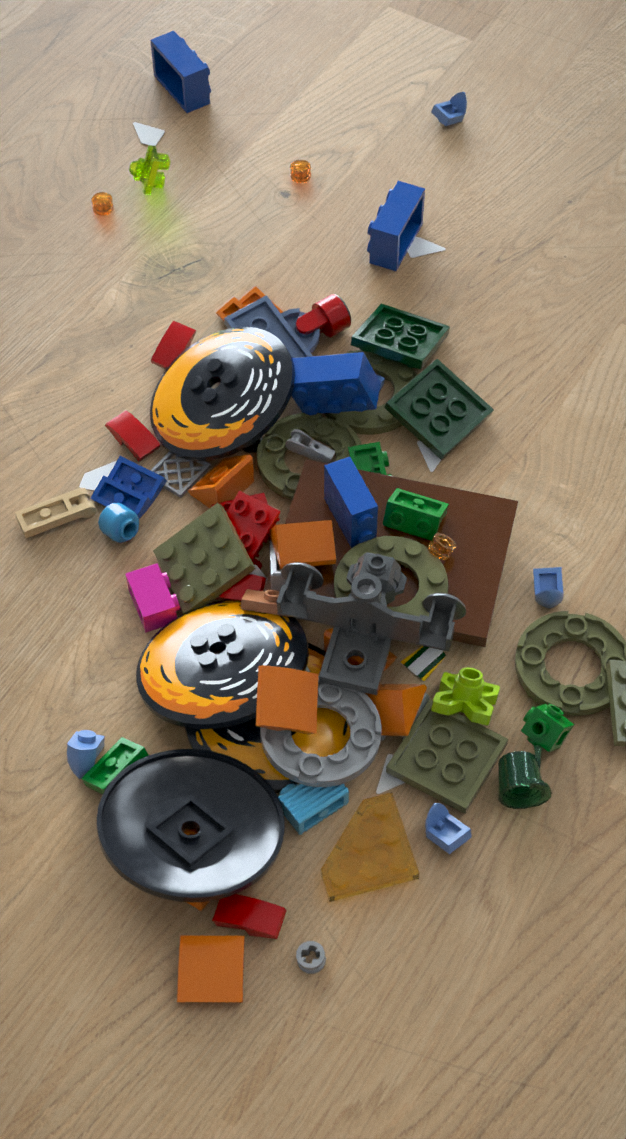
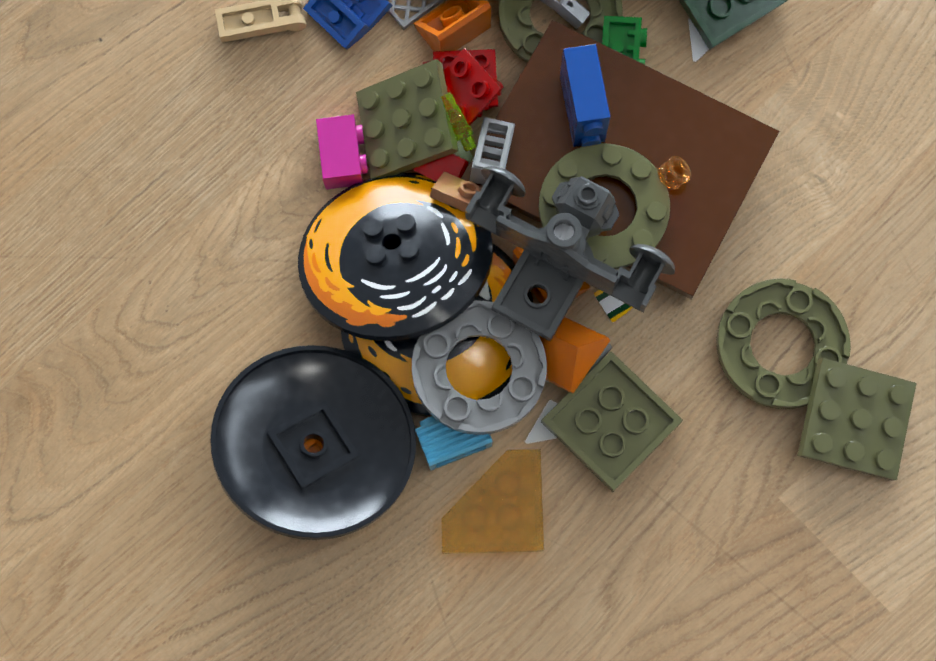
camera: 15 degrees right, 20 degrees up
(83, 751) = (226, 319): medium blue plate -> none
(112, 763) = (254, 343): green bracket -> none
(118, 522) = (326, 49): dark azure head -> none
(210, 968) = (300, 600): orange slope -> none
(250, 545) = (458, 121): none -> clear neon green animal
(250, 914) = (357, 555): red slope -> none
(287, 699) = (448, 329): orange slope -> none
(304, 543) = (518, 136): orange slope -> none
(317, 964) = (404, 601): light grey bush -> none
(414, 514) = (655, 122): green bracket -> none
(445, 829) = (585, 508): medium blue plate -> none
(466, 694) = (653, 357): lime plant -> none
(521, 780) = (683, 472): clear green hat -> none
(546, 727) = (729, 417): green brick -> none
(548, 586) = (783, 243): medium blue plate -> none

